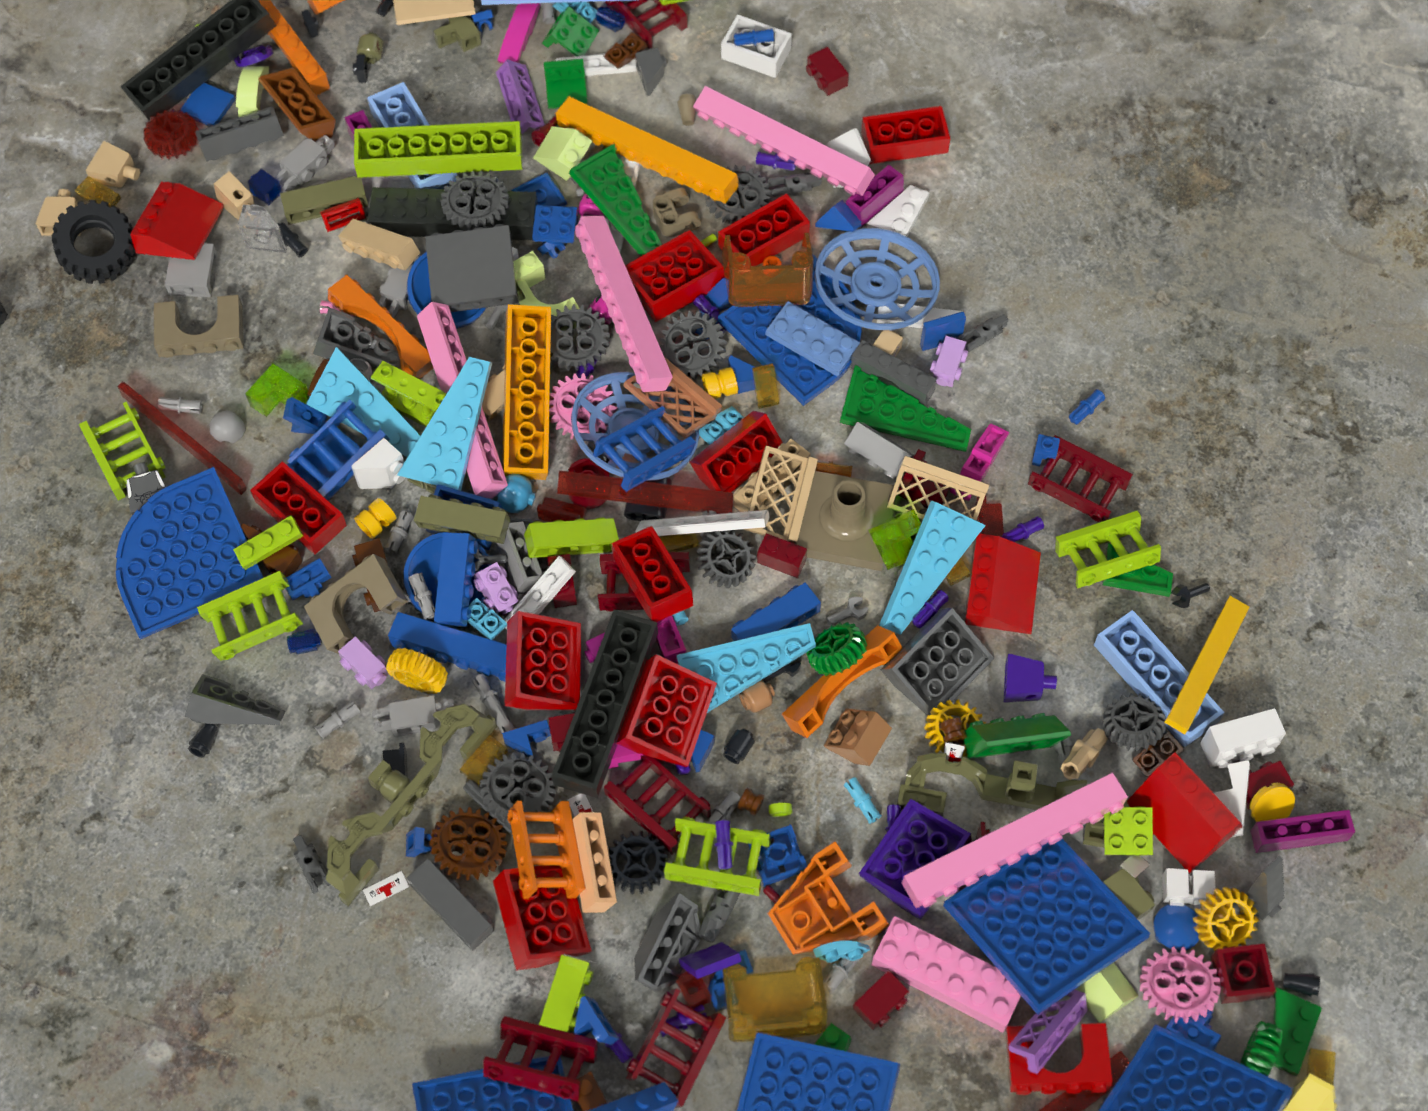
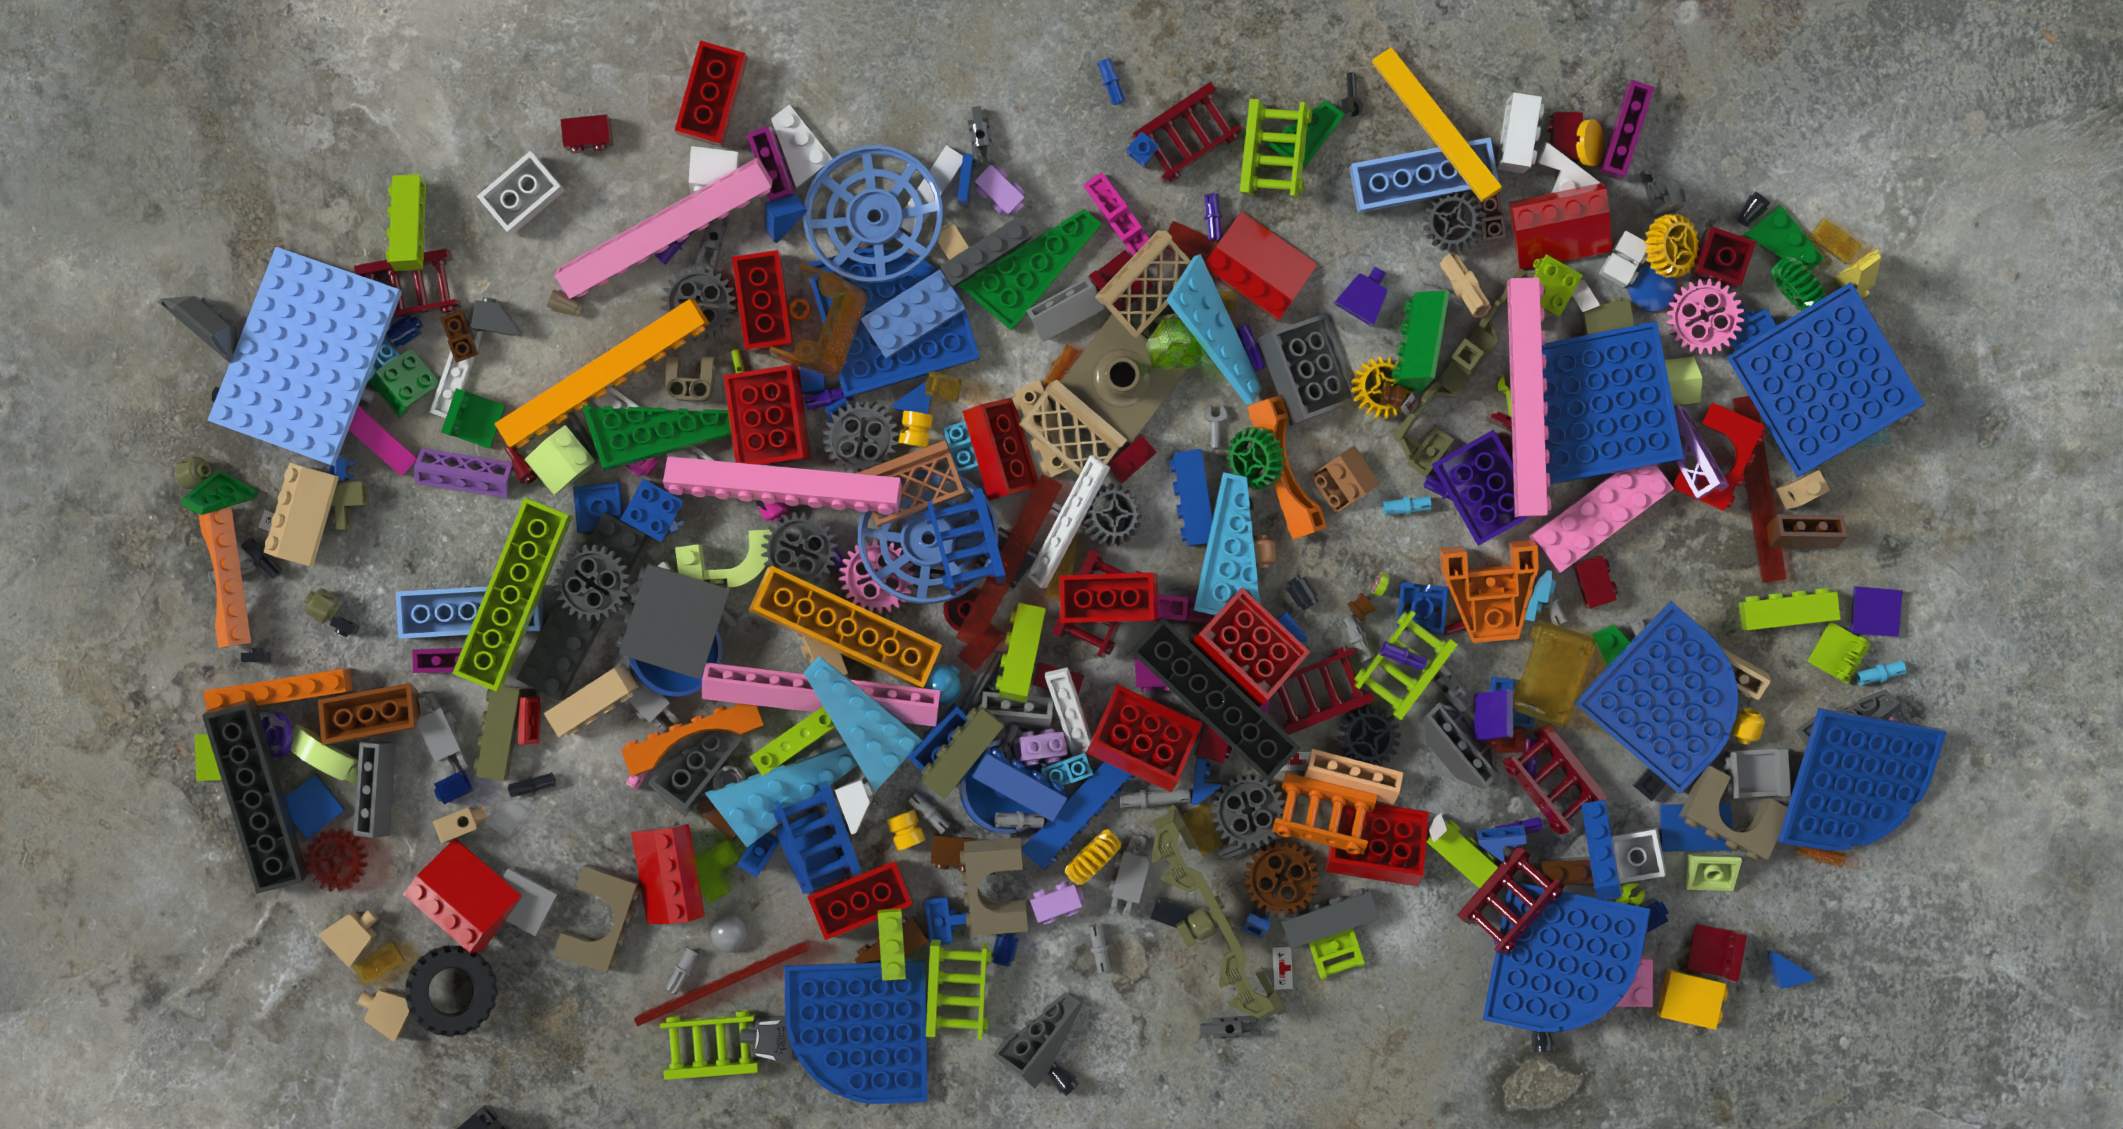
camera: 60 degrees left, 25 degrees up
(259, 356) = (668, 874): none -> red slope
(426, 921) = (1335, 946): none -> lime plate
(754, 37) = (520, 195): blue axle -> none

